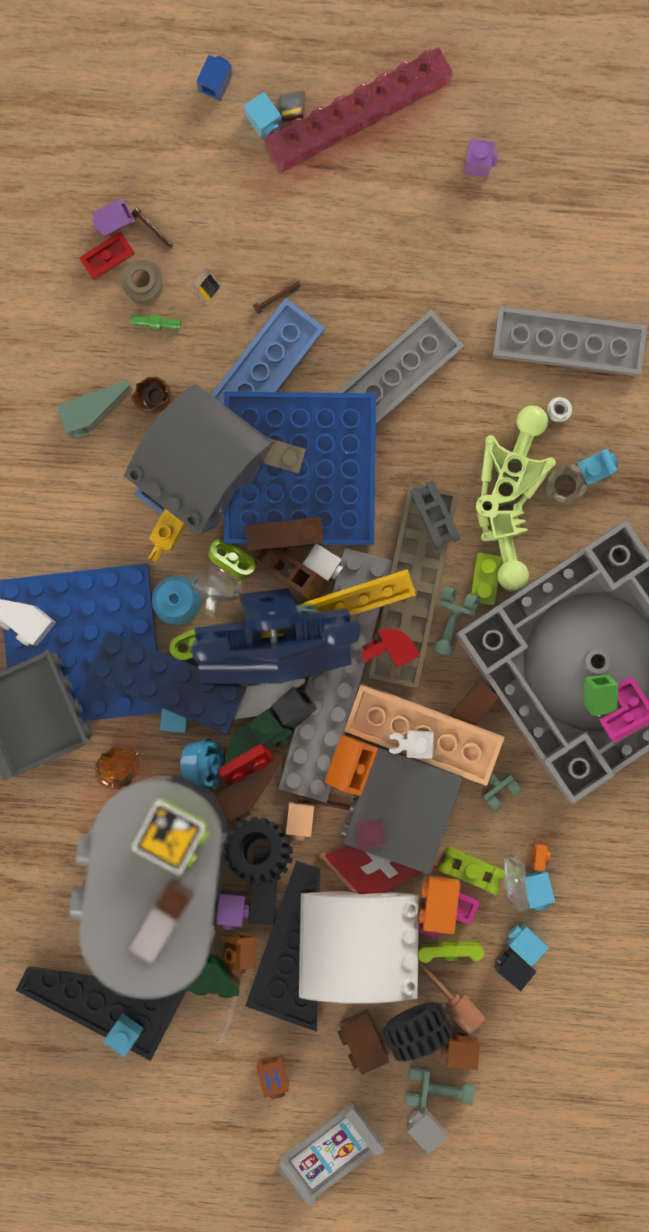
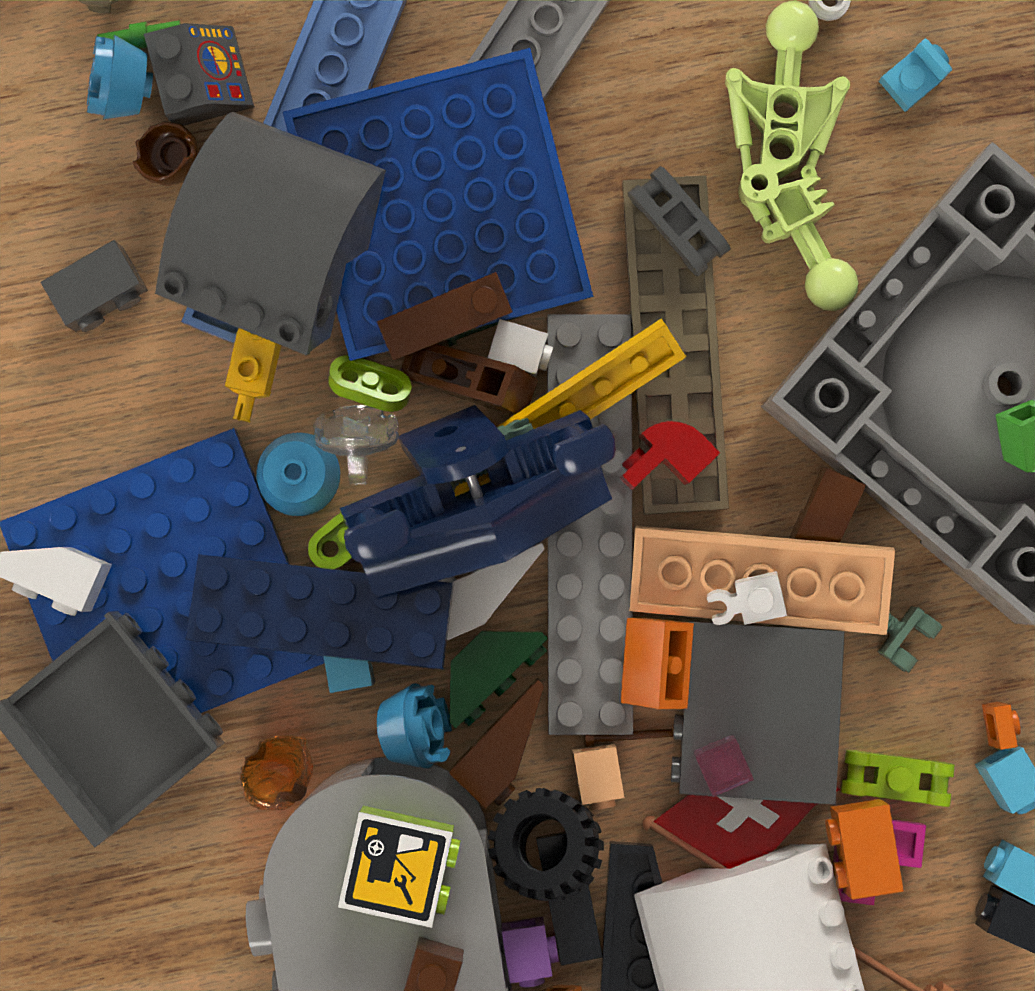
camera: 25 degrees left, 0 degrees up
(90, 410) = (72, 205): sand green slope -> none
(90, 460) = (95, 287): none -> dark grey brick
(136, 345) = (117, 79): none -> dark azure cone
(183, 353) = (198, 72): none -> dark grey slope
(251, 761) = (491, 703): red plate -> none
(265, 726) = (500, 639): dark green plate -> none
(285, 456) = (411, 191): dark tan plate -> none
(293, 707) = (537, 595): black brick -> none
(450, 950) = (900, 918): lime plate -> none
(470, 605) = (752, 427): sand green bar -> none
(485, 578) = (787, 303): lime plate -> none
(515, 882) = (976, 778): clear plate -> none
(574, 474) = (881, 96): dark tan piece -> none

